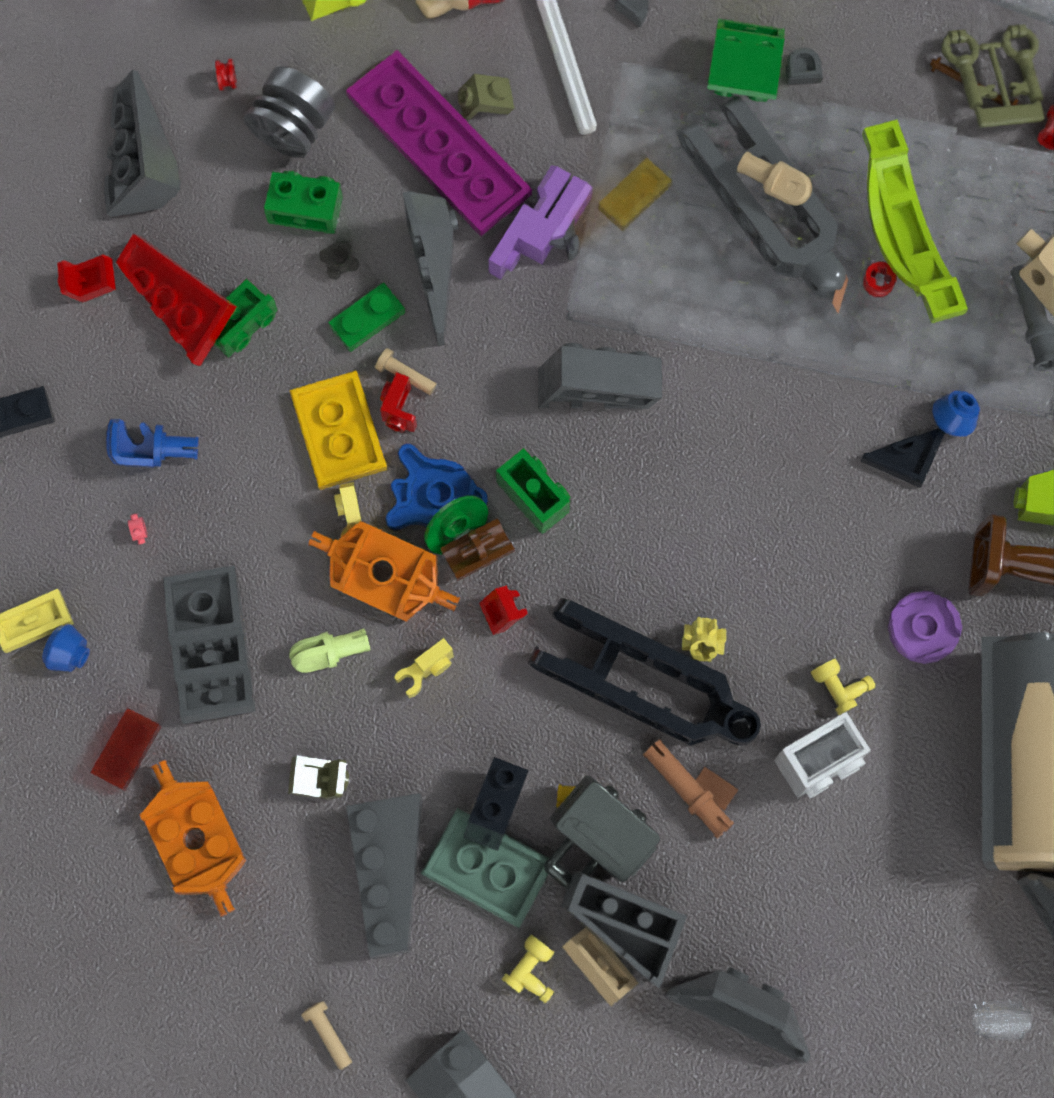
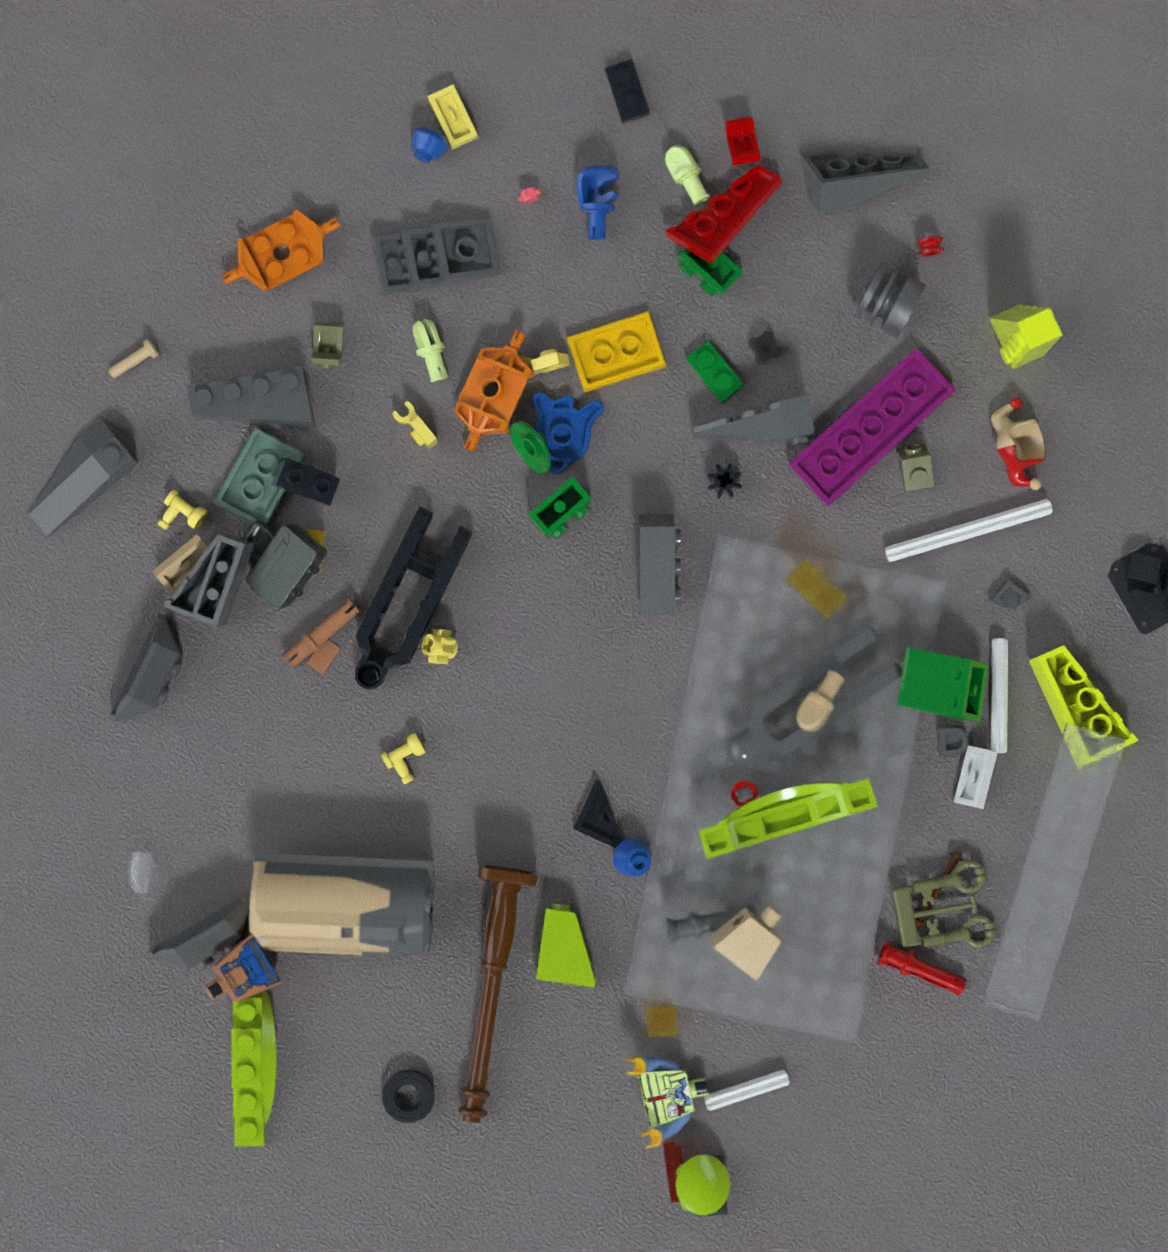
camera: 90 degrees right, 10 degrees up
(119, 344) = (685, 172): none -> yellowish green arm
(126, 749) = (350, 196): clear red plate -> none
(303, 202) = (814, 315): green brick -> none
(391, 364) = (665, 404): tan piece -> none
(393, 398) = (639, 395): red bracket -> none
(477, 549) = (511, 465): reddish brown hips -> none
(501, 609) = (462, 485): red tile -> none
(506, 311) = (716, 483): none -> black gear
(545, 226) = (797, 521): medium lavender plate -> none
(760, 15) = (999, 694): none -> white axle
(821, 755) = (342, 736): white piece -> none
(838, 296) = (726, 758): nougat sticker -> none
(846, 39) = (975, 777): none -> white plate
(924, 627) = (454, 826): medium lavender tile -> none

